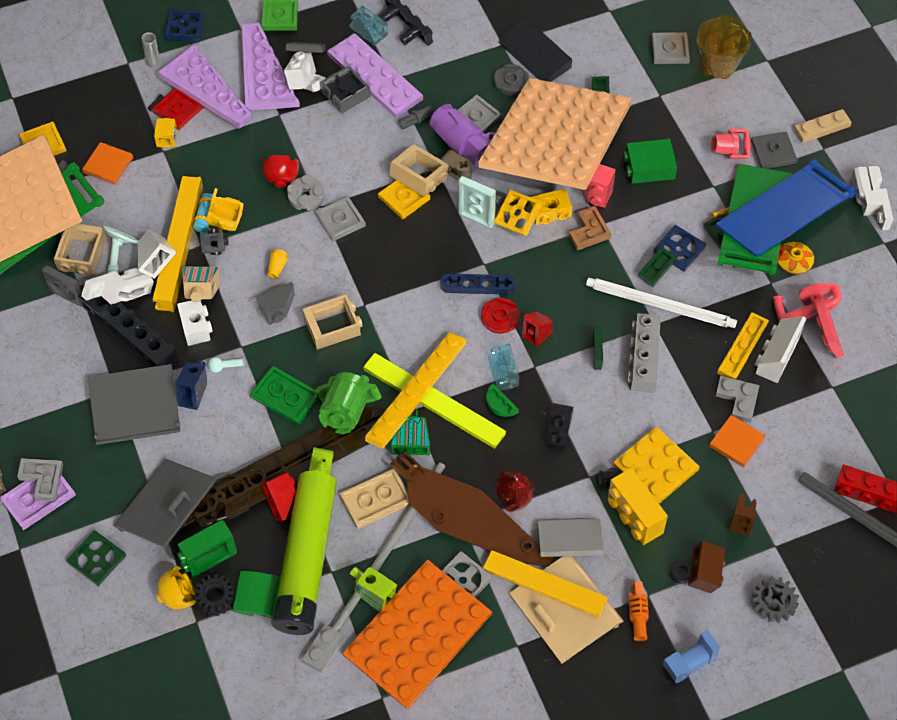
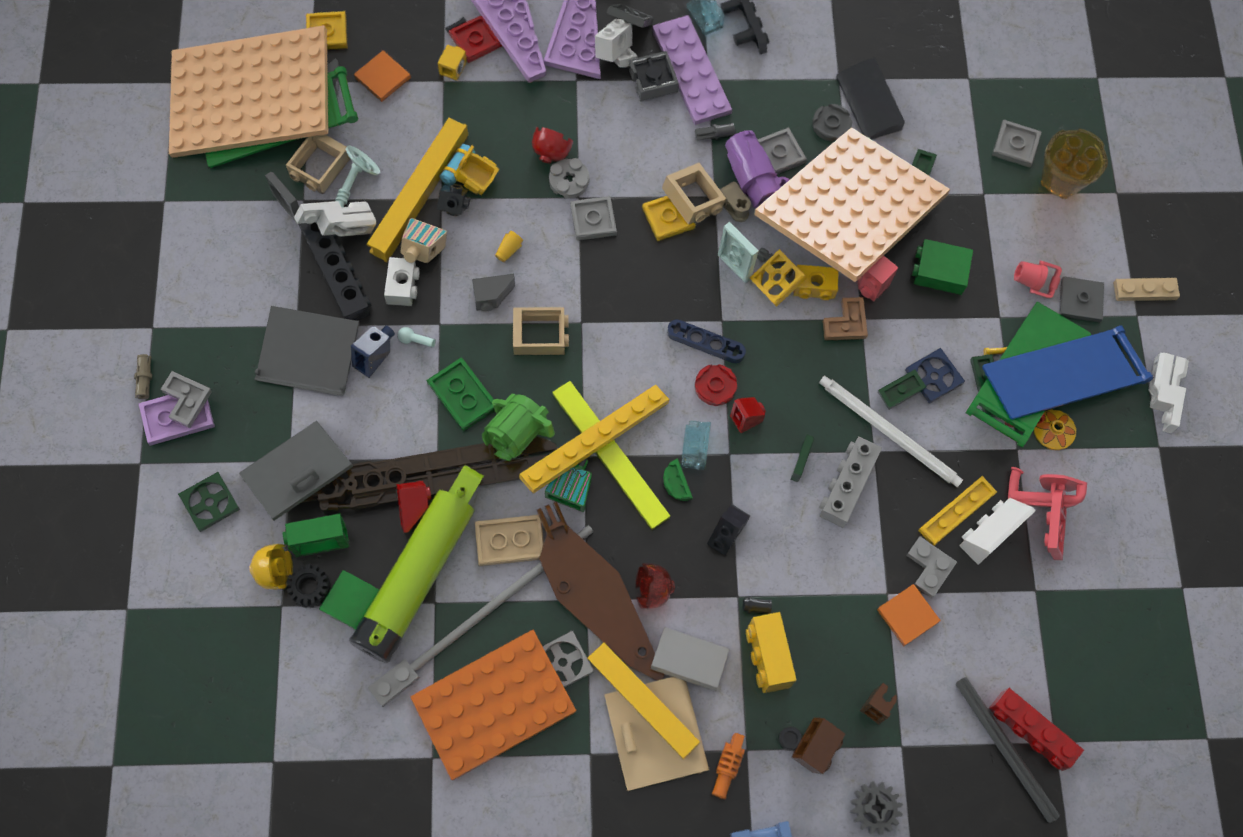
camera: 15 degrees right, 10 degrees up
(153, 253) = (386, 193): white slope -> none
(373, 587) = (469, 648): lime torso -> none
(658, 464) = (812, 611): yellow plate -> none

